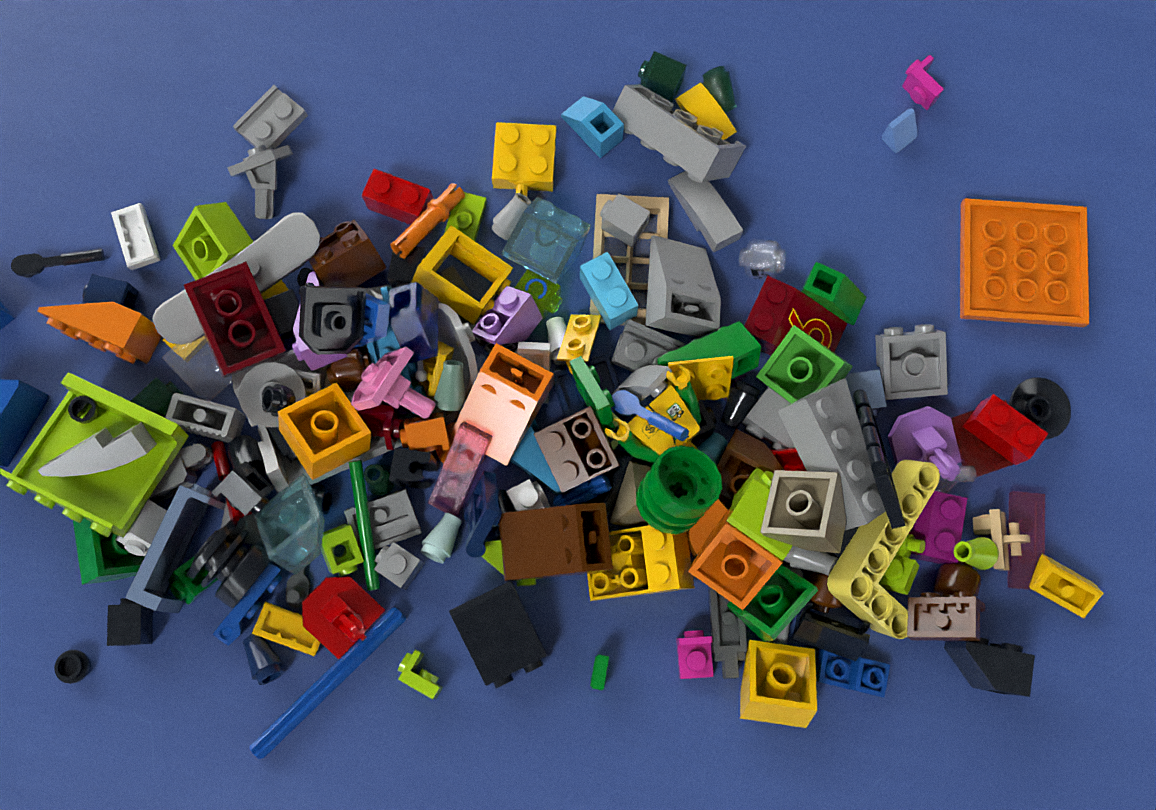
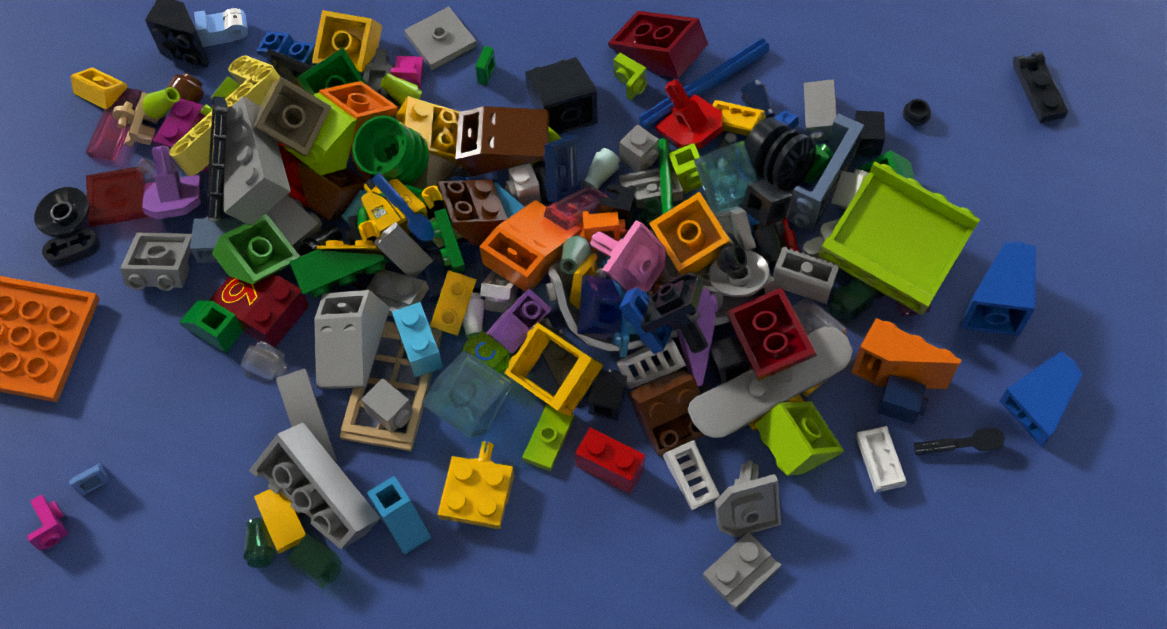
camera: 170 degrees left, 15 degrees down
(79, 406) = (908, 271): black hinge -> none
(101, 453) = (892, 229): light grey slope -> none
(184, 652) = (820, 108): none -> light grey hinge
(330, 217) = (701, 470): none -> white slope
(388, 736) = (661, 42): none -> dark red slope
(436, 212) = (571, 435): orange pin -> none
(509, 216) = (501, 426): light grey cone -> none
(665, 715) = (440, 38): none -> light grey plate
(692, 616) = (399, 88): none -> lime cone
(944, 617) = (203, 57): bracket -> none
(946, 696) = (221, 27): none -> light blue leg
(1005, 430) = (100, 186): red brick -> none
(1010, 367) = (70, 247): none -> black beam

